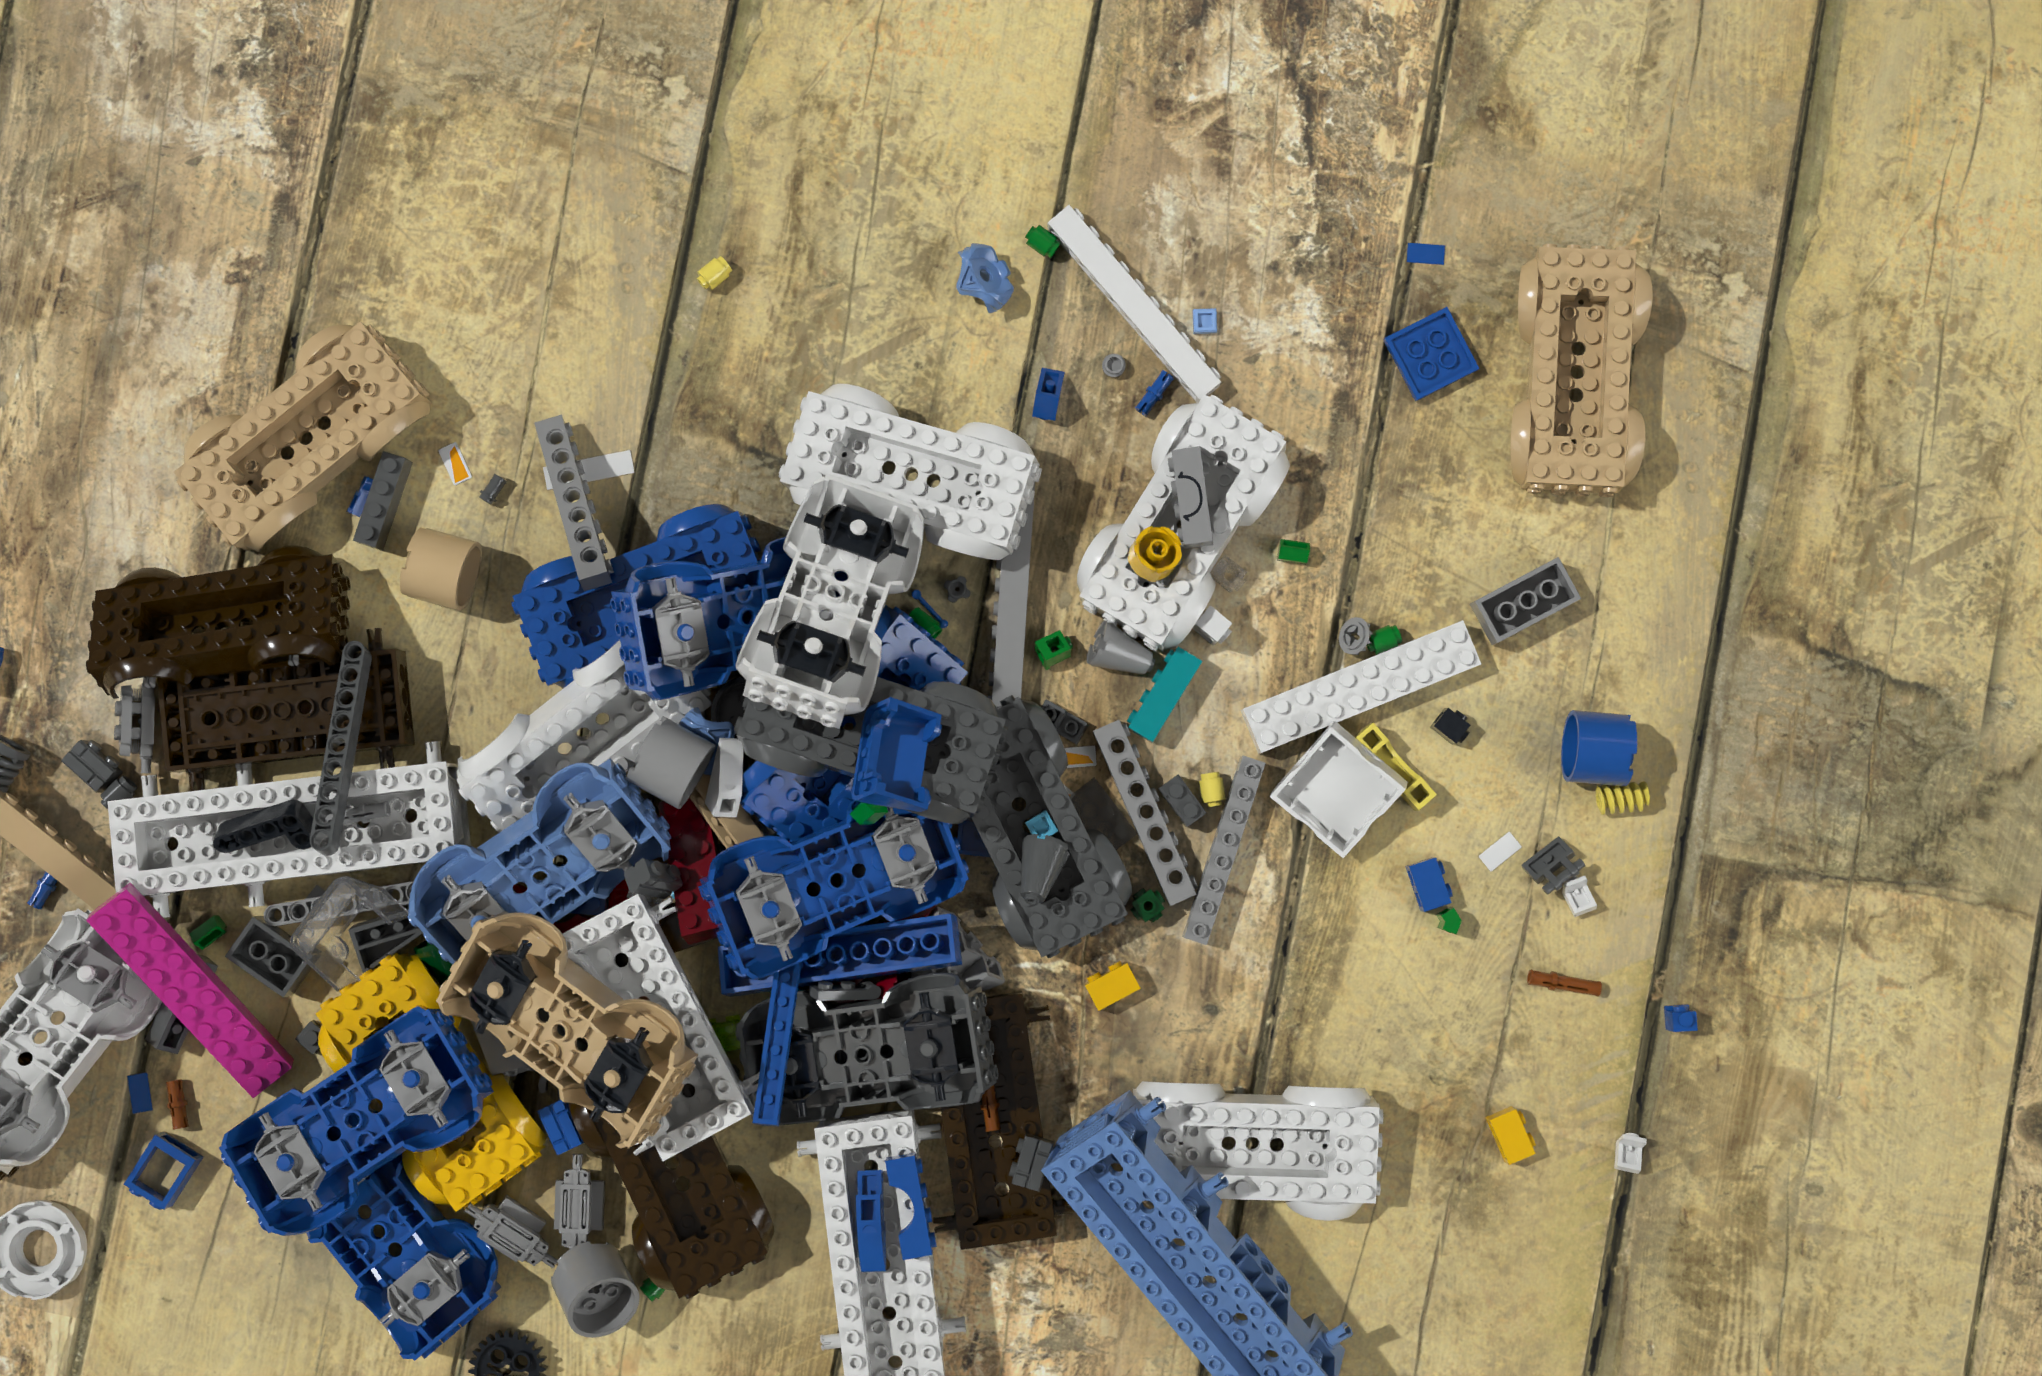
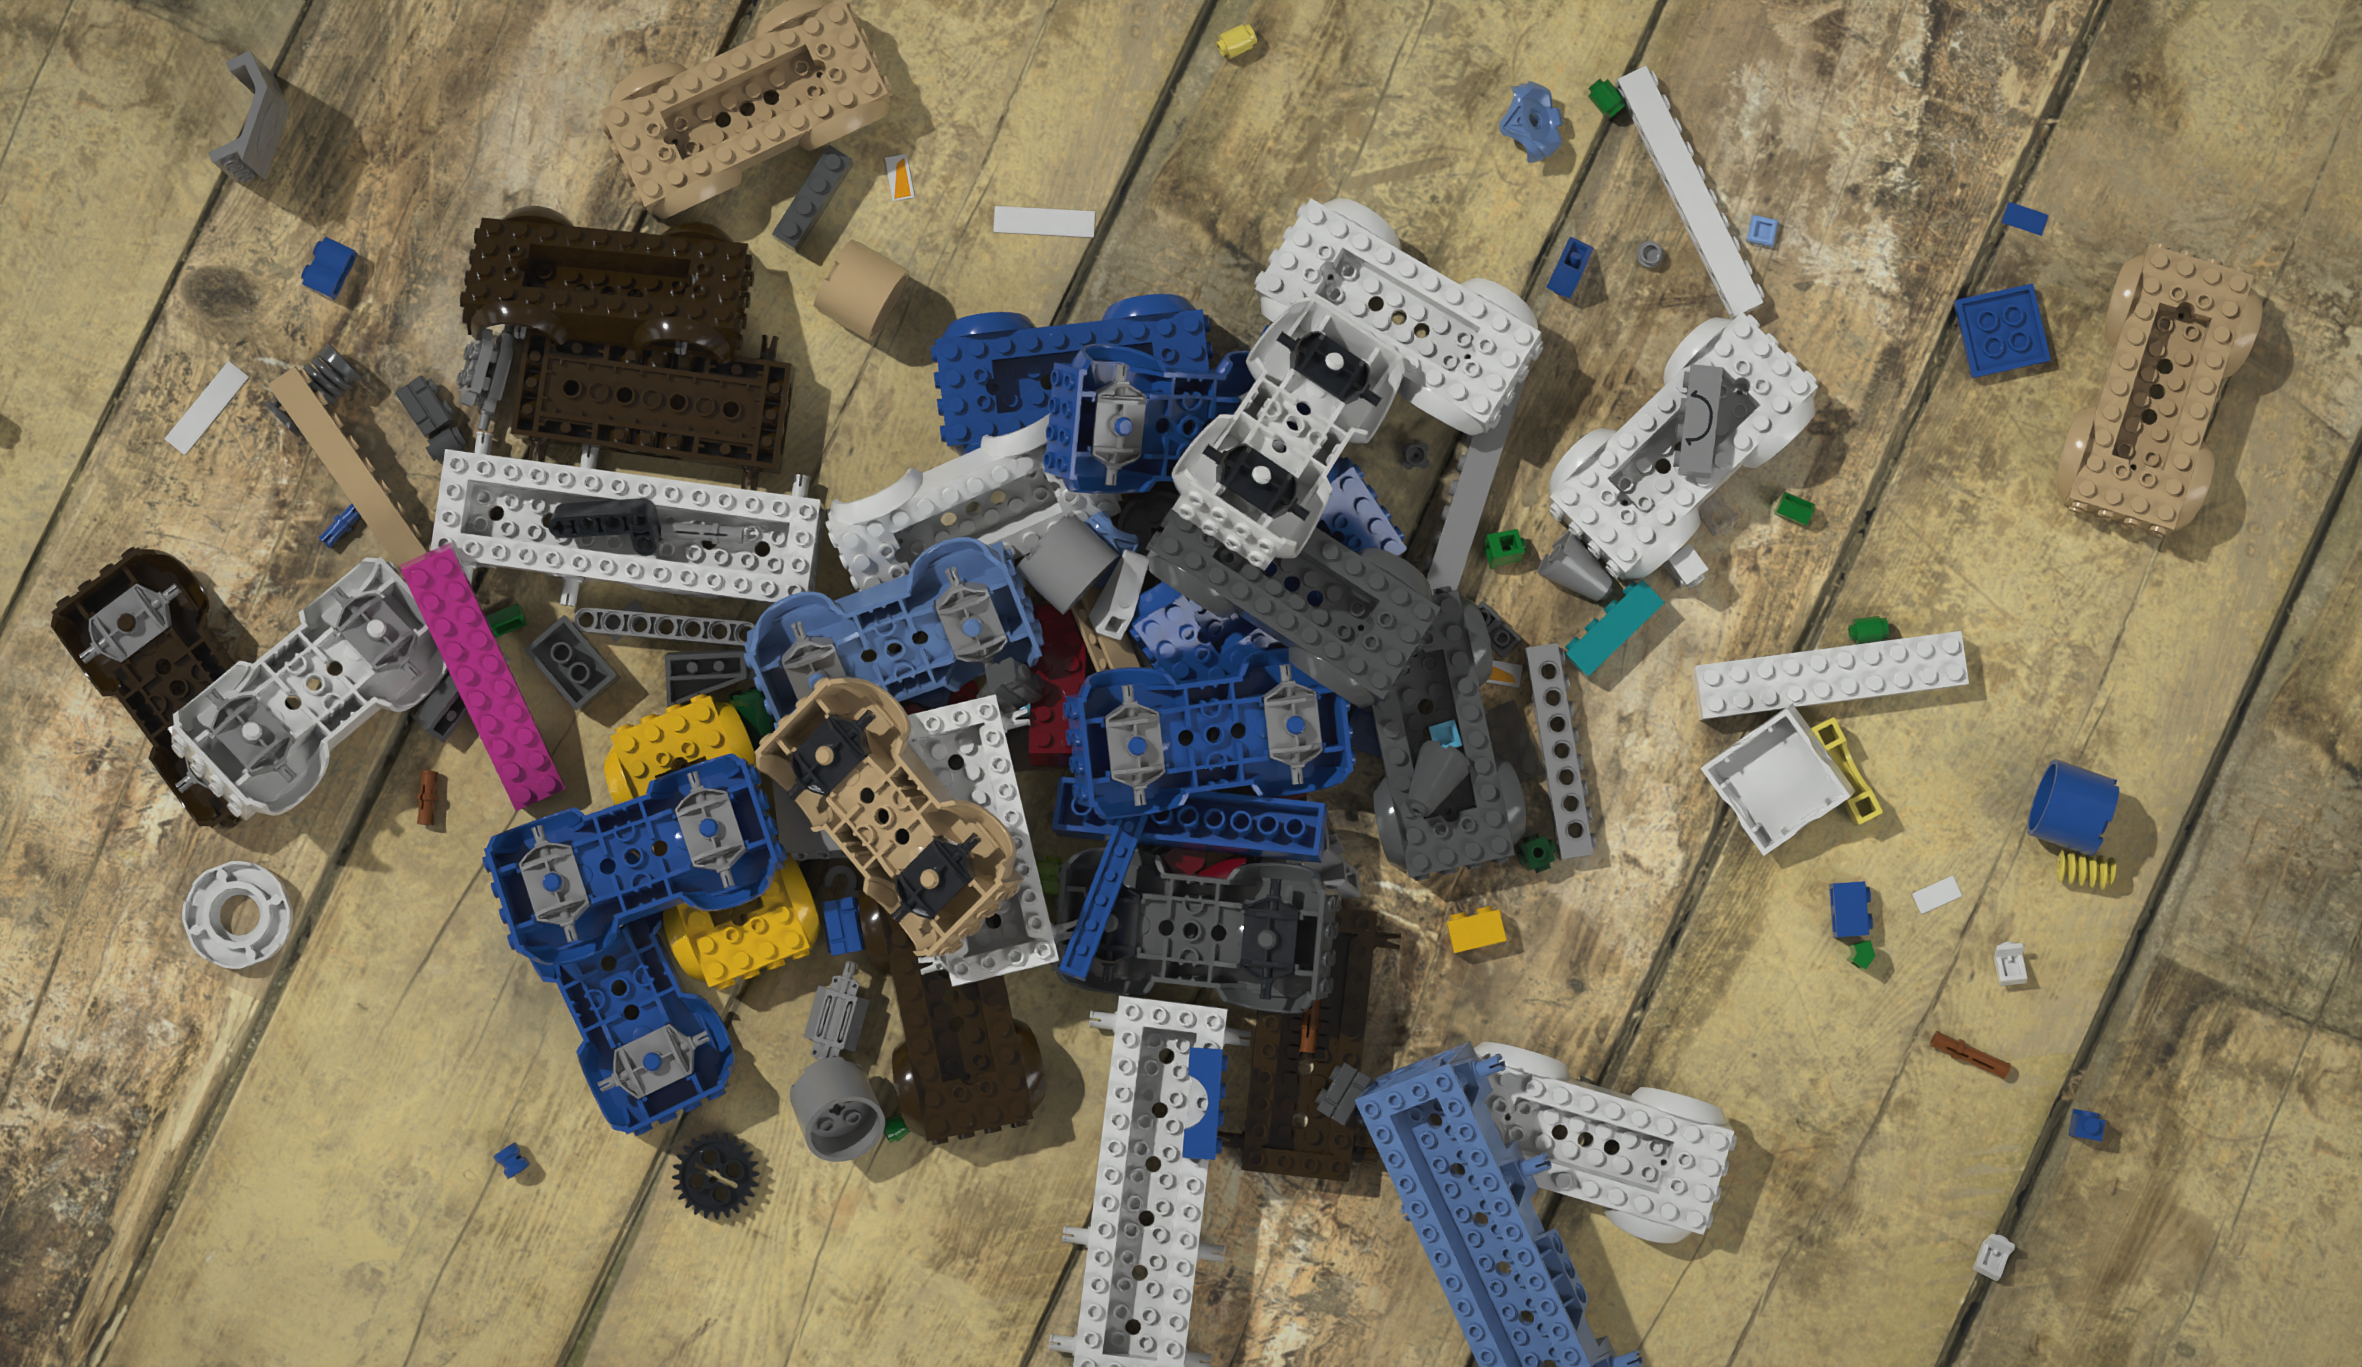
camera: 10 degrees right, 0 degrees up
(140, 1093) = (388, 775): blue sticker -> none
(175, 1149) = (415, 846): blue window -> none
(309, 1037) = (590, 763): dark grey plate -> none
(319, 934) = (630, 652): clear windscreen -> none
(344, 758) = (713, 443): dark grey beam -> none
(359, 499) = (789, 188): blue plate -> none
(492, 489) = (934, 216): dark grey pin -> none
(512, 1231) = (759, 1027): light grey piece -> none
(589, 573) = (1028, 337): light grey brick -> none
(845, 991) = (1188, 858): dark grey plate -> none
(868, 813) = (1268, 668): green piece -> none
(870, 1221) = (1154, 1112): blue slope -> none
(894, 755) = (1313, 613): blue windscreen -> none
(917, 595) = (1369, 451): blue hinge -> none
(926, 621) = (1375, 482): green cone -> none
(1146, 562) = (1637, 483): yellow brick -> none
(1154, 393) = (1686, 296): blue pin -> none
(1182, 800) = (1603, 749): dark grey brick -> none
(1212, 789) = (1639, 745): light yellow brick -> none
(1223, 850) = (1635, 814): light grey brick -> none
(1348, 642) = (1828, 622): light grey gear -> none
(1451, 726) = (1919, 743): black brick -> none
(1511, 1135) = (1869, 1204): yellow brick -> none
(1525, 601) = (2034, 627): light grey brick -> none
(1548, 861) = (1987, 917): dark grey plate -> none

